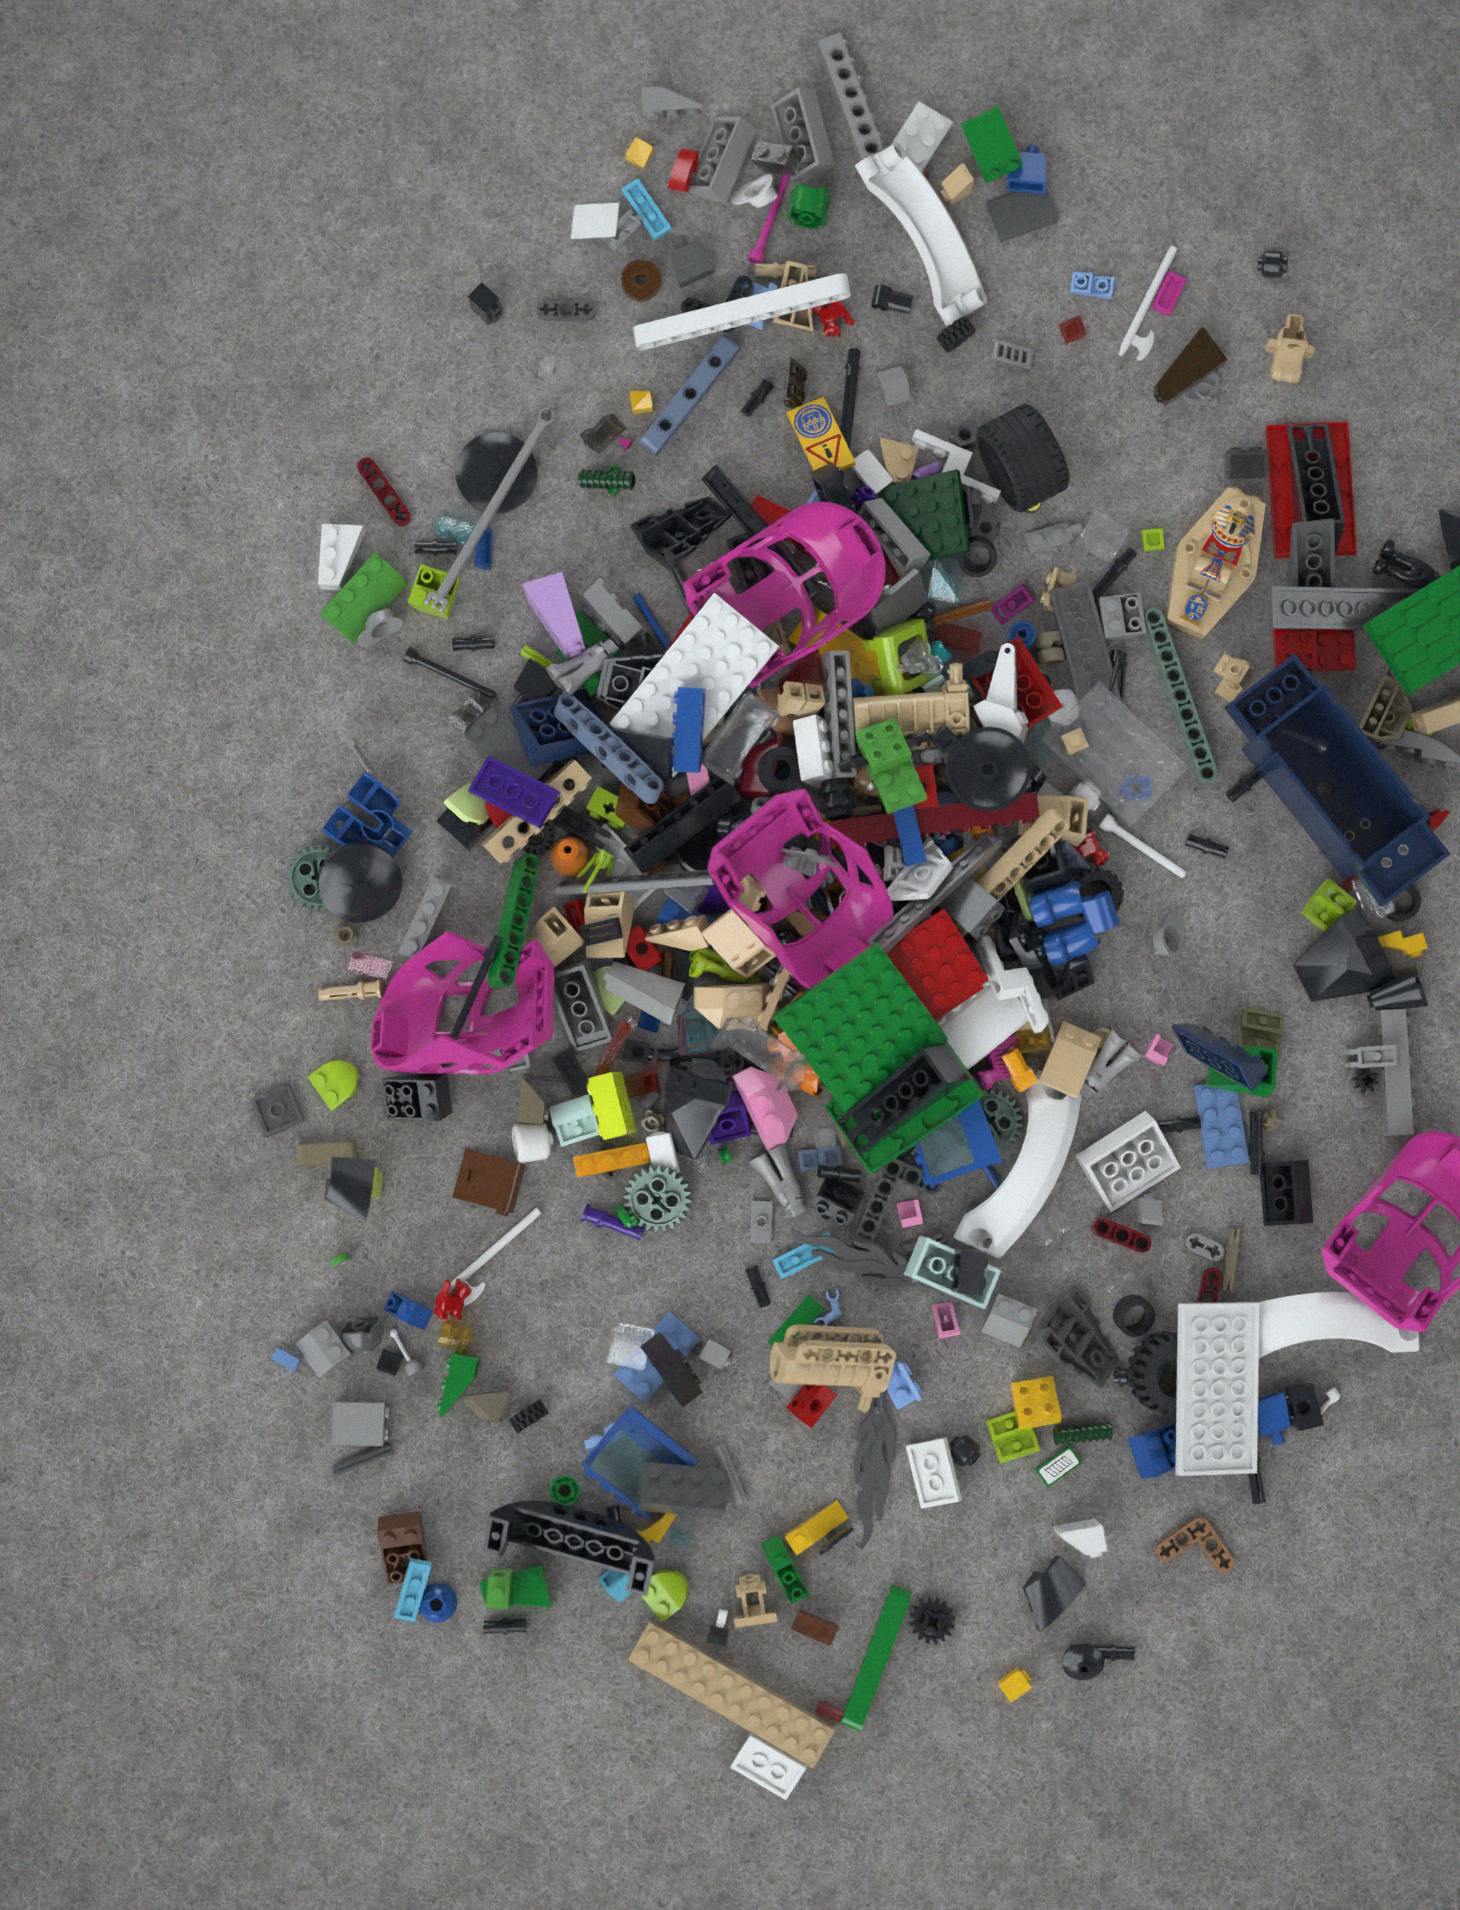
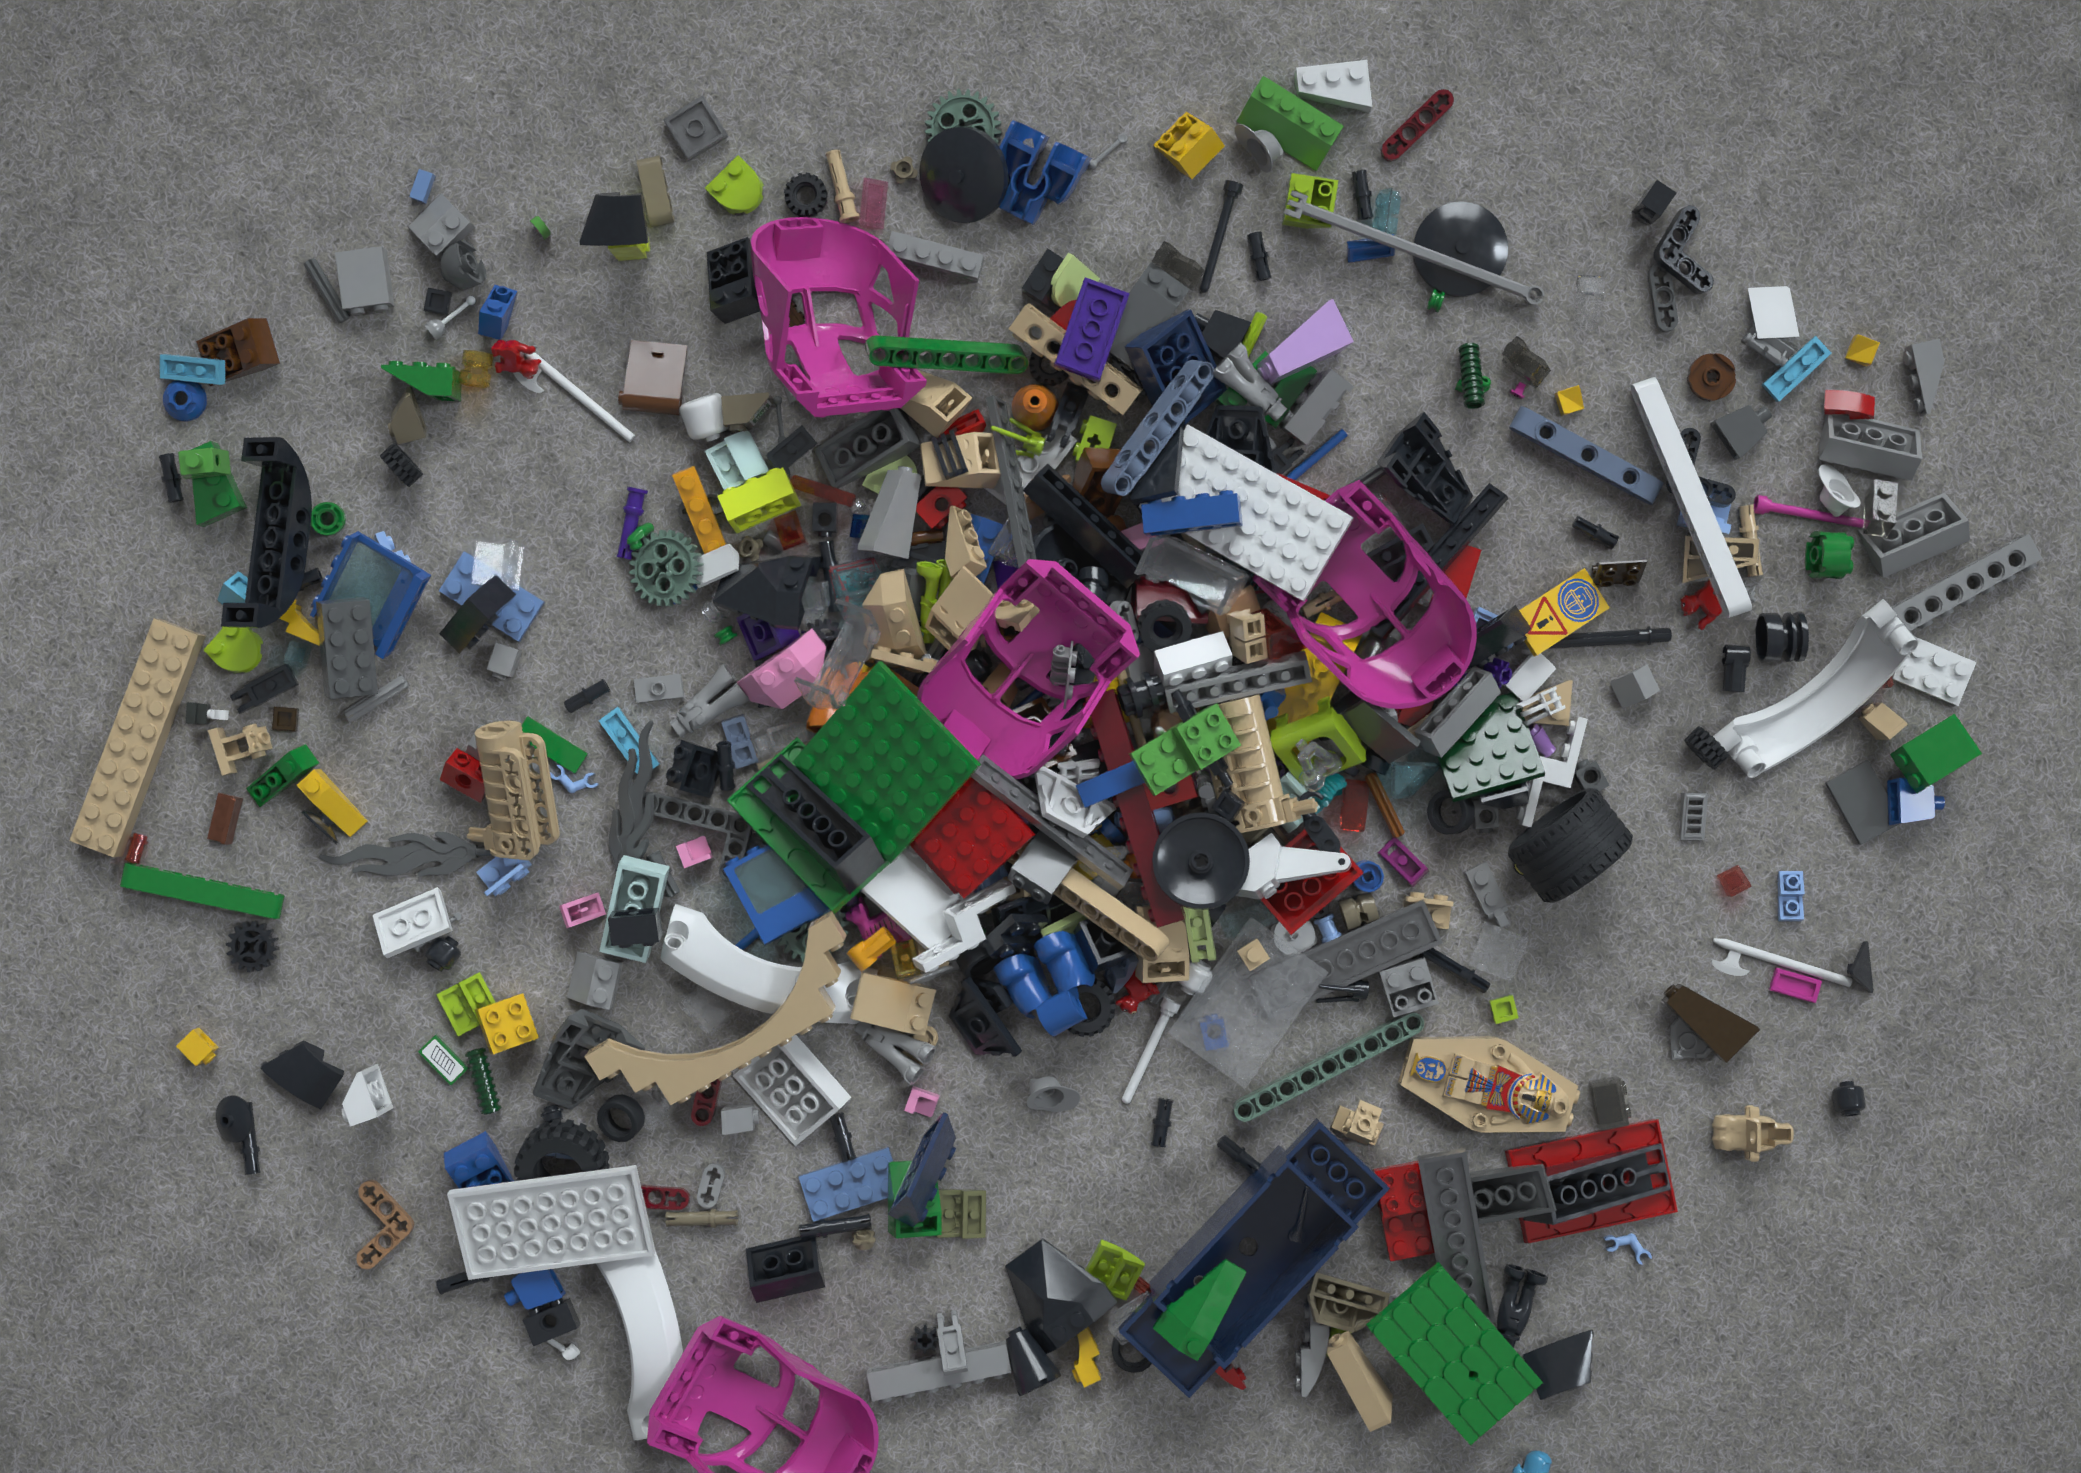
camera: 80 degrees right, 5 degrees up
(352, 1010) = (795, 185): none -> black tyre
(367, 686) = (1189, 144): none -> yellow slope
(489, 956) = (900, 333): black bar -> none
(532, 293) = (1677, 256): none -> black beam
(537, 500) = (1435, 300): none -> green bush
(705, 1570) = (266, 687): none -> black hinge
(735, 1558) = (285, 719): none -> dark brown tile
(768, 1766) = (65, 791): white plate -> none
(872, 256) = (1782, 637): none -> black wheel
(898, 463) = (1542, 705): none -> white arm
(1050, 785) = (1199, 933): none -> yellowish green plate
(1060, 677) = (1327, 928): none -> light blue bush
(1098, 987) = (980, 1023): none -> black wing
(1103, 1248) = (685, 1073): none -> tan arch
(1163, 236) = (1861, 968): none -> black piece
(1366, 464) = (1630, 1239): none -> light blue arm
(1379, 832) = (1197, 1314): none -> green wedge

